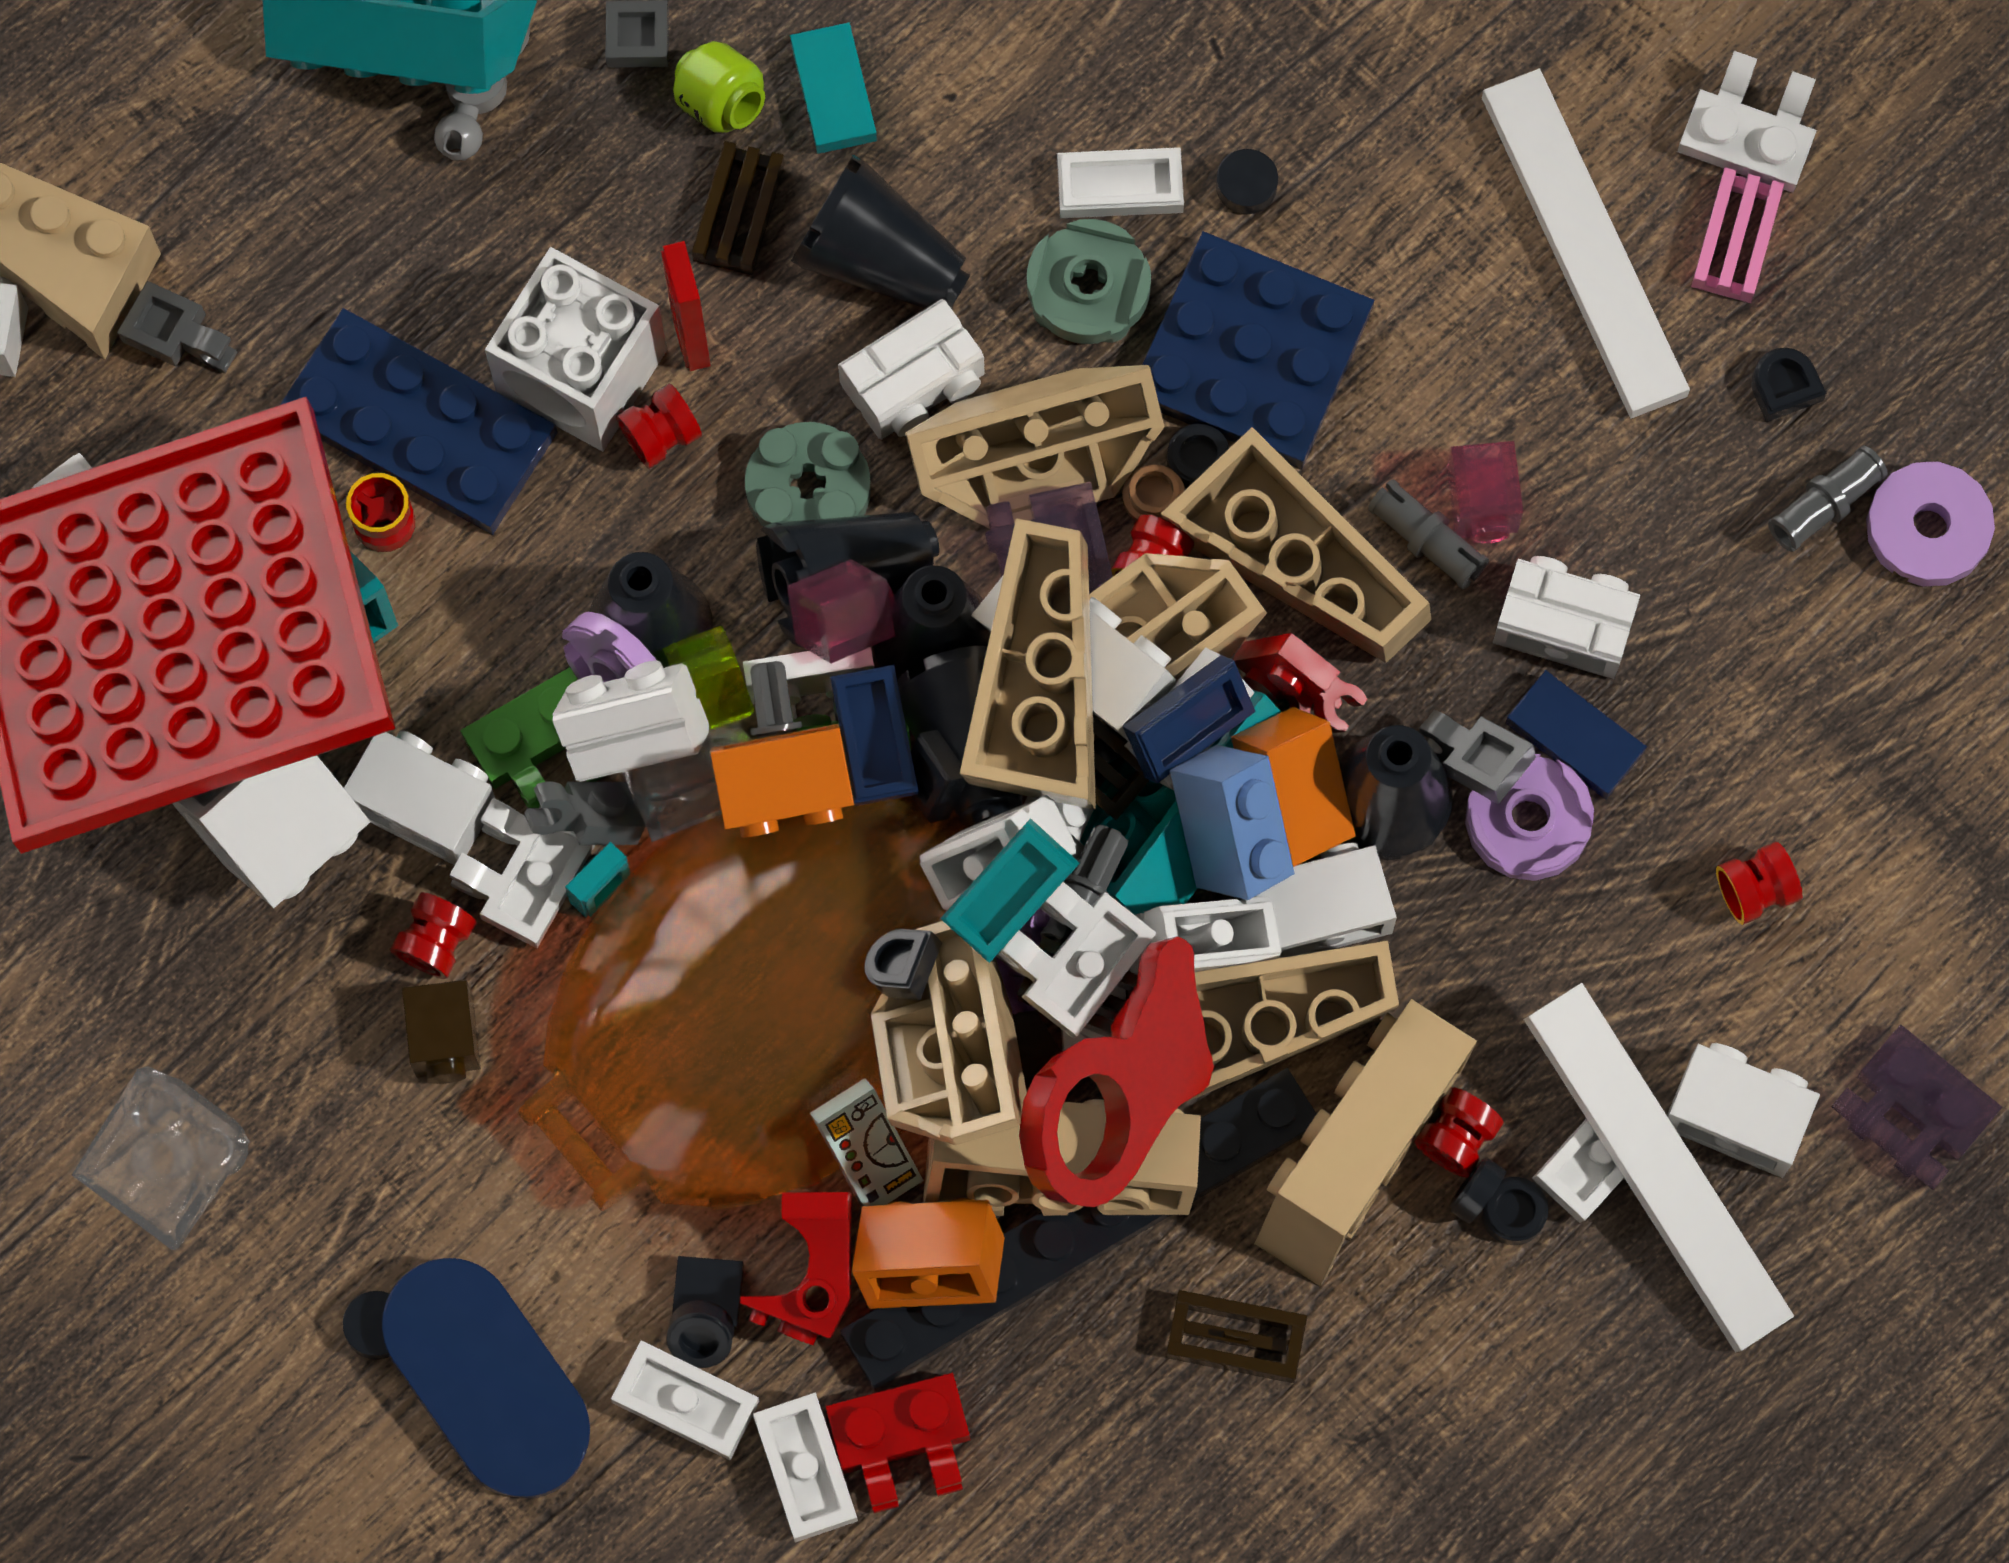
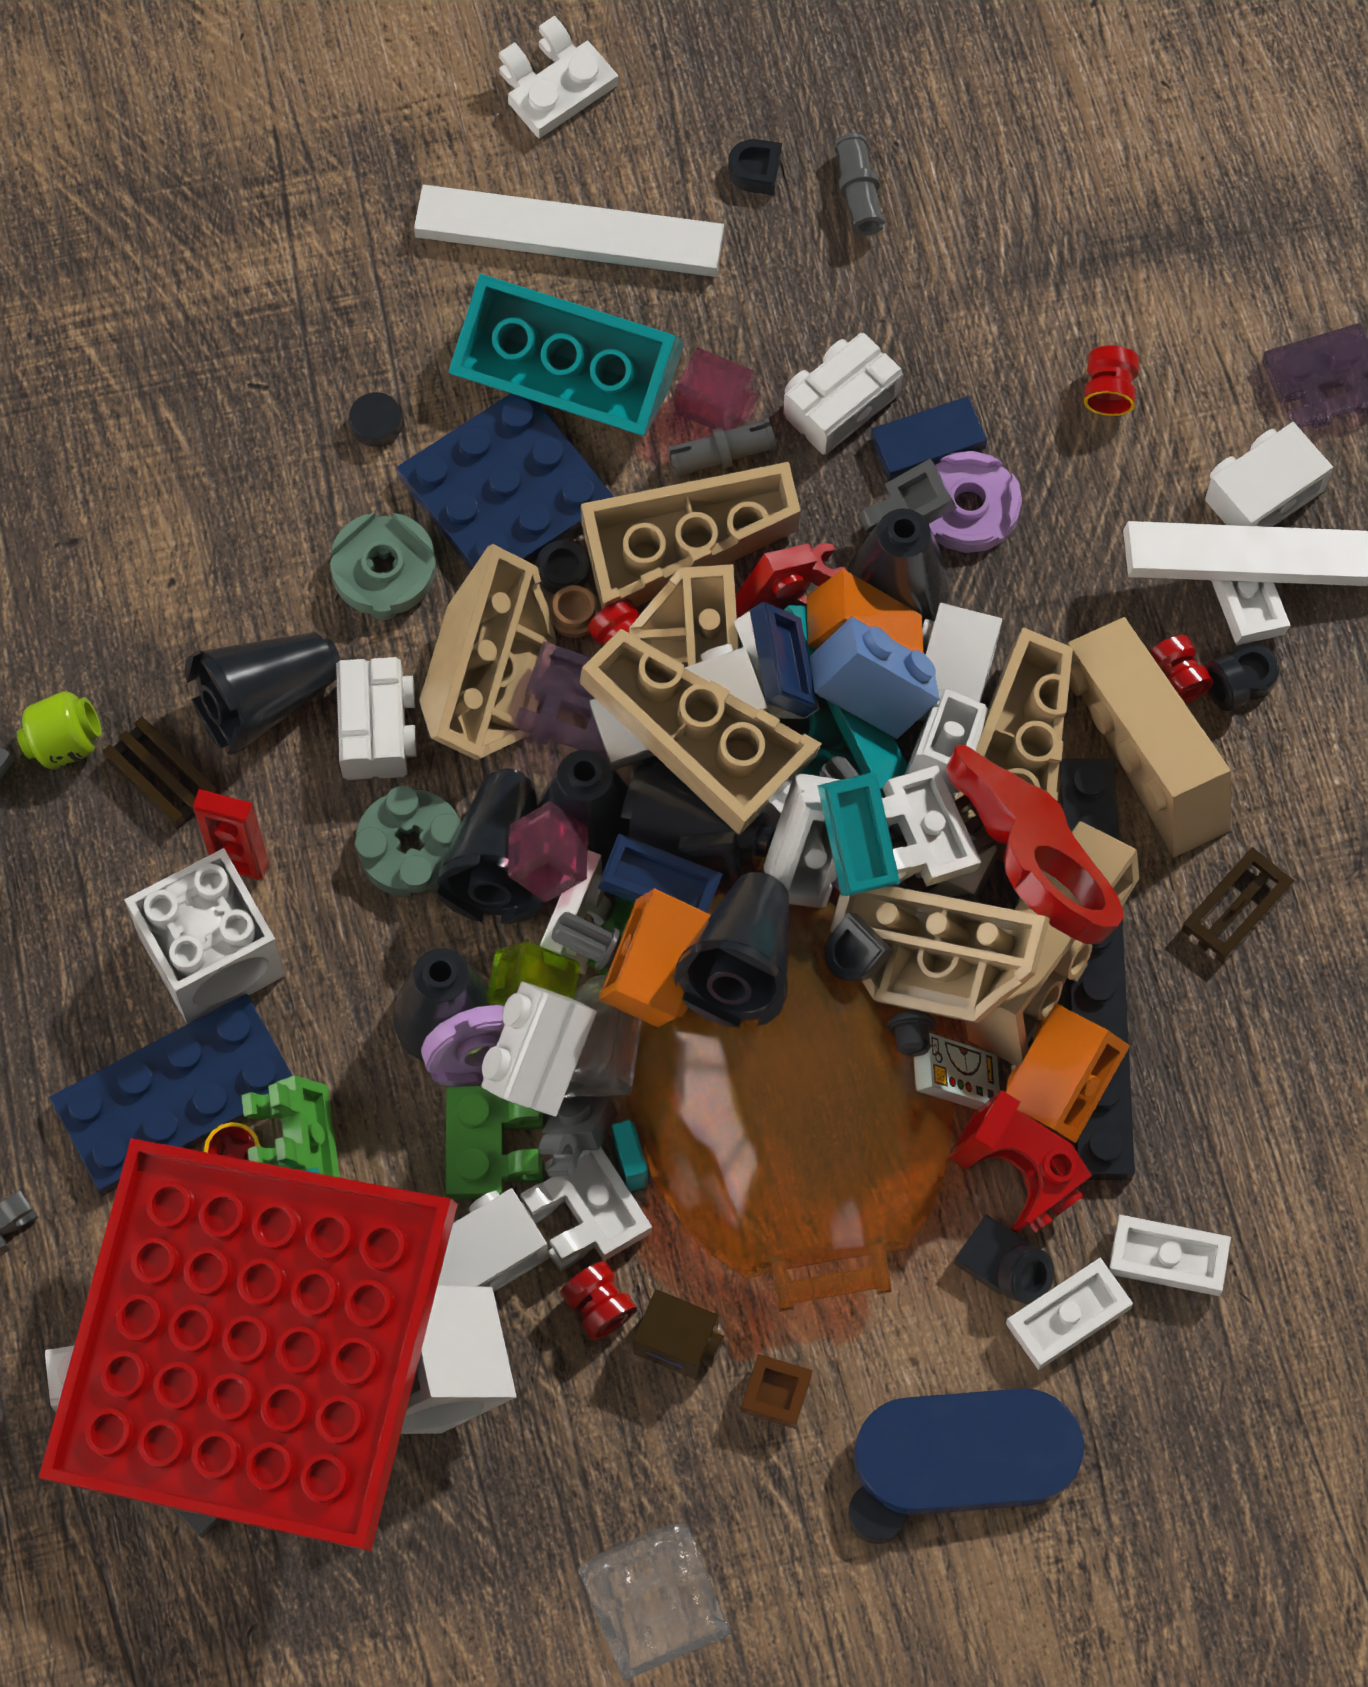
camera: 60 degrees left, 5 degrees down
(440, 1158) = (776, 1391): none -> reddish brown plate
(443, 564) = (305, 1121): none -> bright green plate
(659, 425) = (298, 918): red wheel -> none
(826, 849) = (740, 955): none -> black cone
(833, 88) = (111, 655): teal tile -> none
(858, 1071) = (912, 1032): none -> black piece
(900, 1425) = (1172, 1170): red plate -> none
(1120, 182) = (318, 503): white tile -> none
(1427, 319) = (565, 355): none -> teal slope
(1751, 189) = (587, 119): bright pink tile -> none
(1935, 489) = (916, 109): lavender tile -> none

